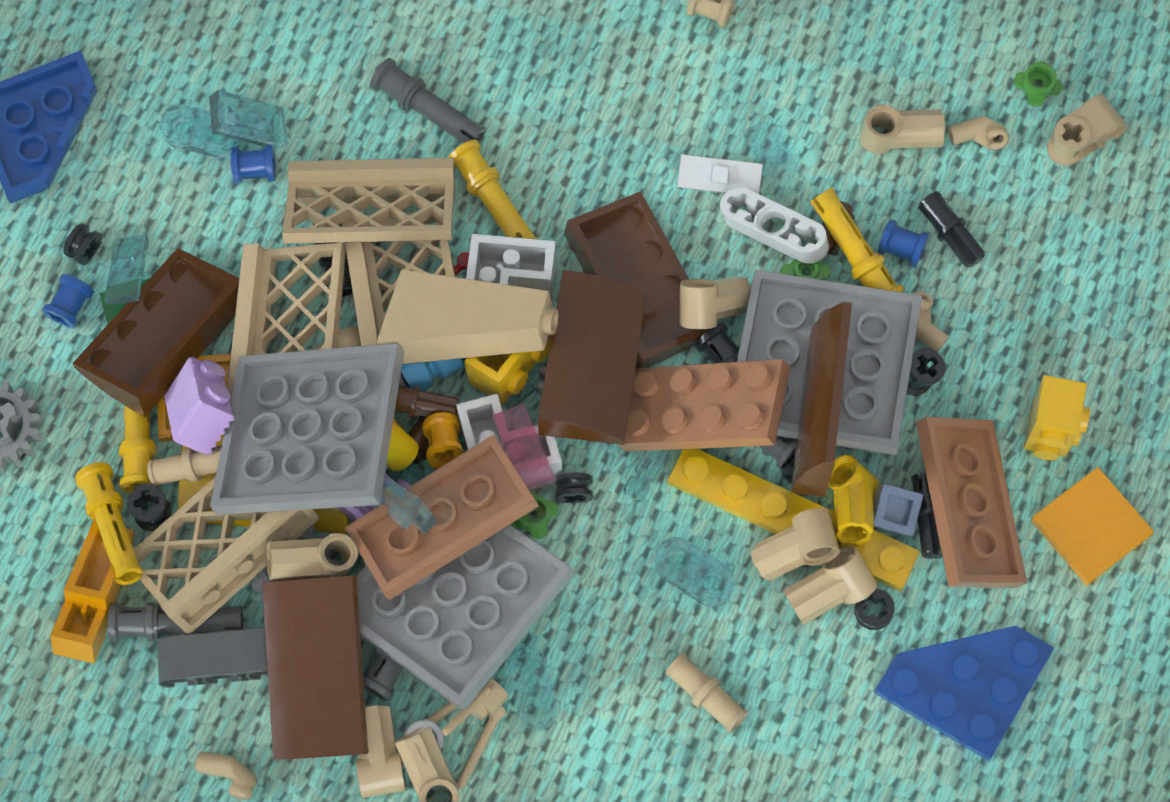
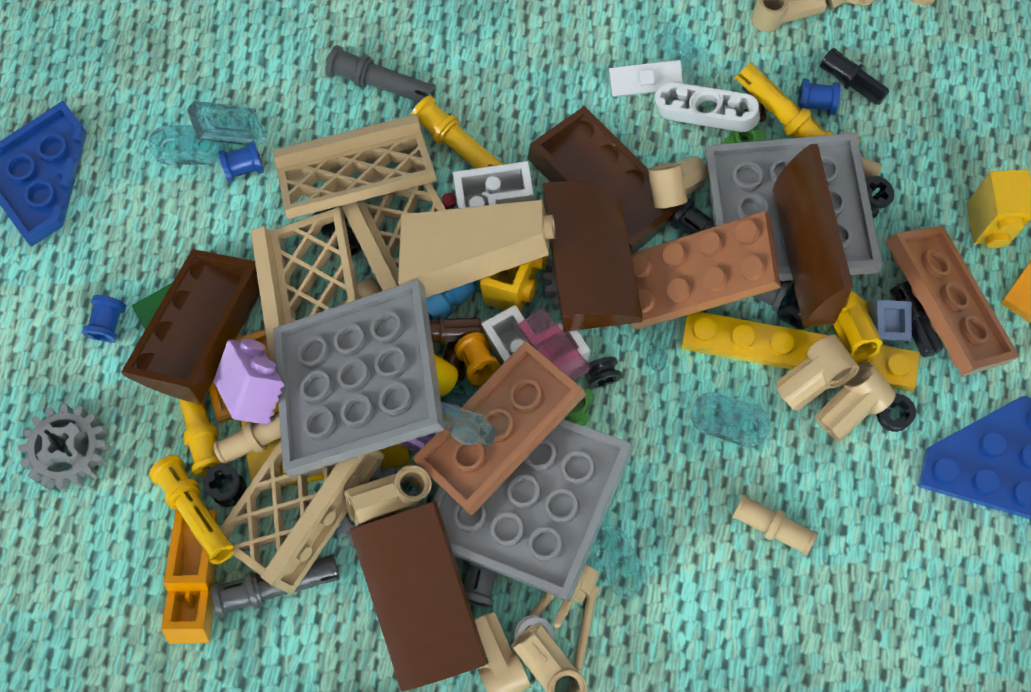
camera: 15 degrees left, 0 degrees up
(82, 244) = (105, 265): black bush -> none
(126, 270) = (150, 279): clear light blue piece -> none
(212, 656) = (317, 608): dark grey beam -> none

